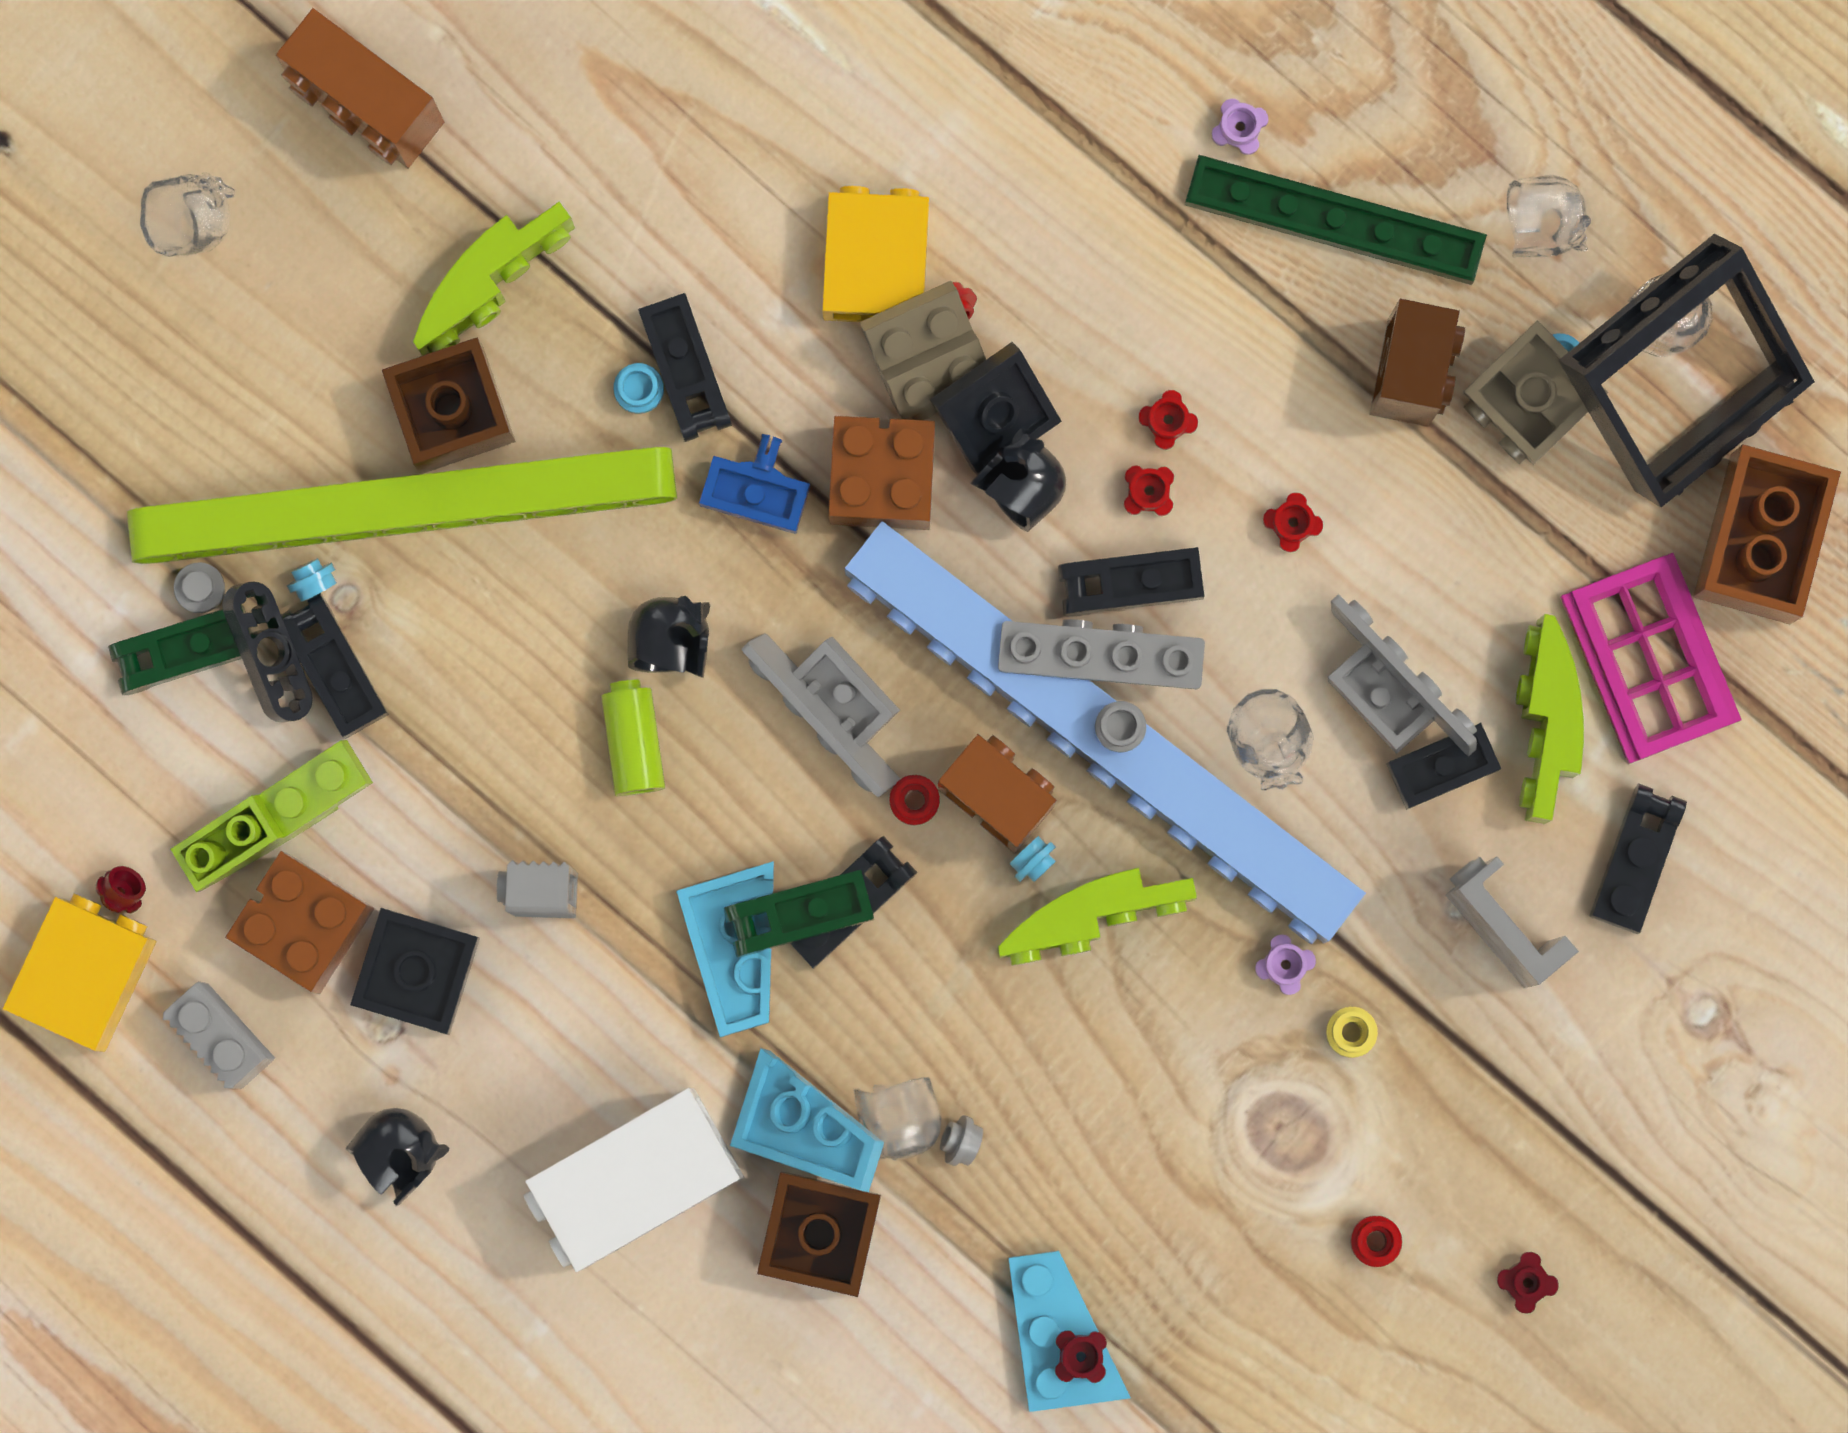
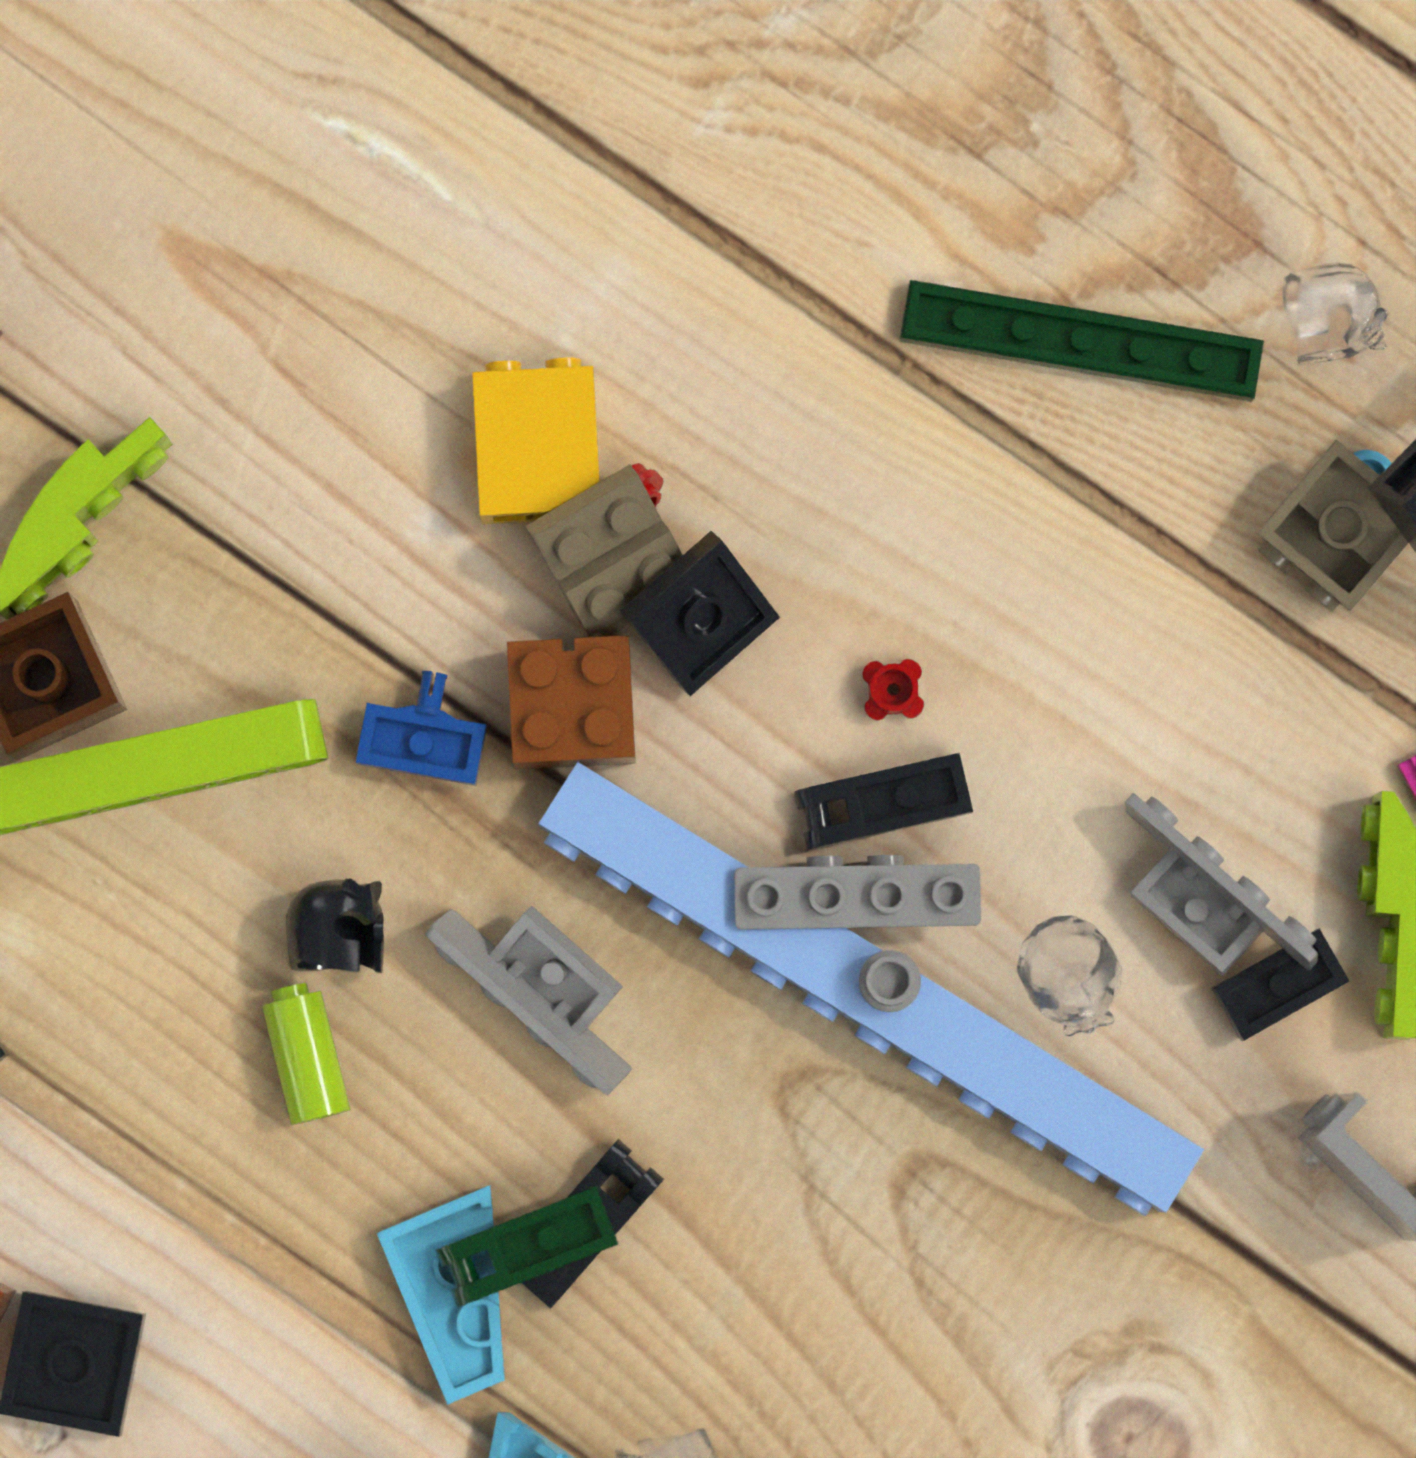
camera: 10 degrees left, 0 degrees up
(538, 890) = (210, 1251): light grey brick -> none
(638, 388) = (268, 630): medium azure plate -> none
(684, 364) = (320, 596): black plate -> none
(914, 783) = (651, 1071): red plate -> none
(998, 791) = (751, 1075): dark orange piece -> none
(1023, 480) = (742, 694): black helmet -> none
(1033, 860) = (802, 1150): medium azure plate -> none
(1072, 917) = (855, 1215): lime slope -> none
(1171, 405) = (908, 584): red plate -> none
(1237, 112) = (950, 224): lavender plate -> none
(1295, 508) = (1087, 710): red plate -> none
(1299, 961) = (1099, 1247): lavender plate -> none
(1367, 1027) = (1223, 1316): light yellow plate -> none
(1415, 363) = (1197, 505): reddish brown brick -> none

